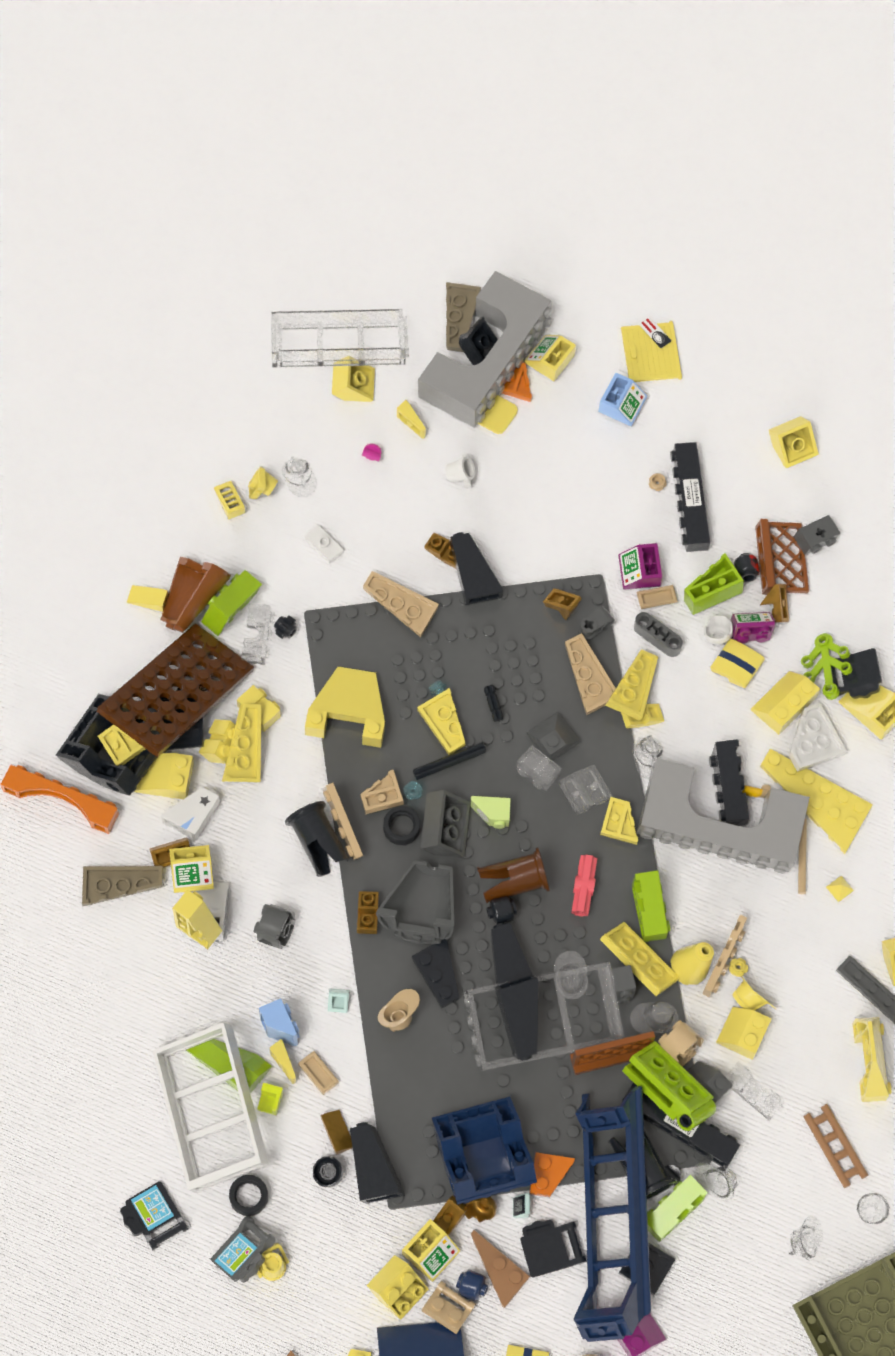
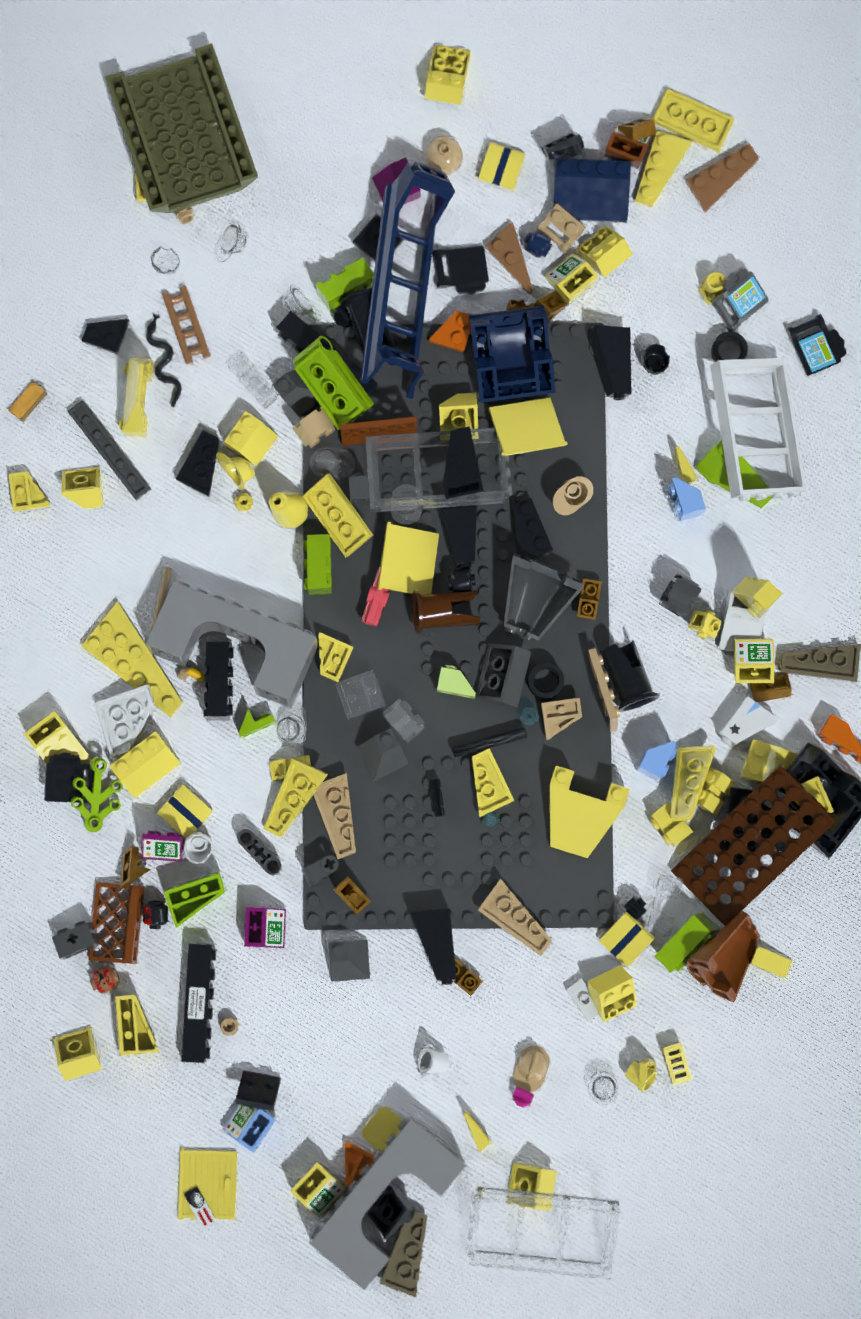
camera: 170 degrees left, 15 degrees up
(245, 901) = (704, 624): none -> light yellow brick
(270, 1099) = (700, 435): neon yellow panel -> none
(281, 761) = (655, 760): none -> light blue slope
(290, 598) = (626, 939): none -> light yellow slope
(298, 548) = (612, 993): none -> light yellow slope
(318, 1073) = (652, 455): tan tile -> none
(337, 1131) = (642, 398): pearl gold slope -> none
(338, 1000) = (626, 522): light aqua slope -> none
(366, 480) = (531, 1068): none -> tan piece
(456, 1075) = (527, 426): none -> light yellow piece
(521, 1206) = (483, 305): slope -> none
(529, 1080) = (459, 412): none -> light yellow slope
(555, 552) = (349, 960): none -> dark grey slope
(559, 923) = (408, 560): none -> light yellow piece
(620, 427) = (258, 1090): none -> black plate
(657, 597) = (252, 895): tan tile -> none
(687, 748) = (249, 726): none -> lime slope
(728, 952) = (255, 510): tan wing -> none
(746, 465) = (132, 1028): none -> light yellow wedge
(782, 507) = (105, 979): none -> head
(790, 999) = (200, 464): none -> black wing
(839, 888) = (130, 567): light yellow slope -> none
(861, 1263) = (185, 215): none -> tan plate
(871, 1137) = (151, 328): none -> black animal

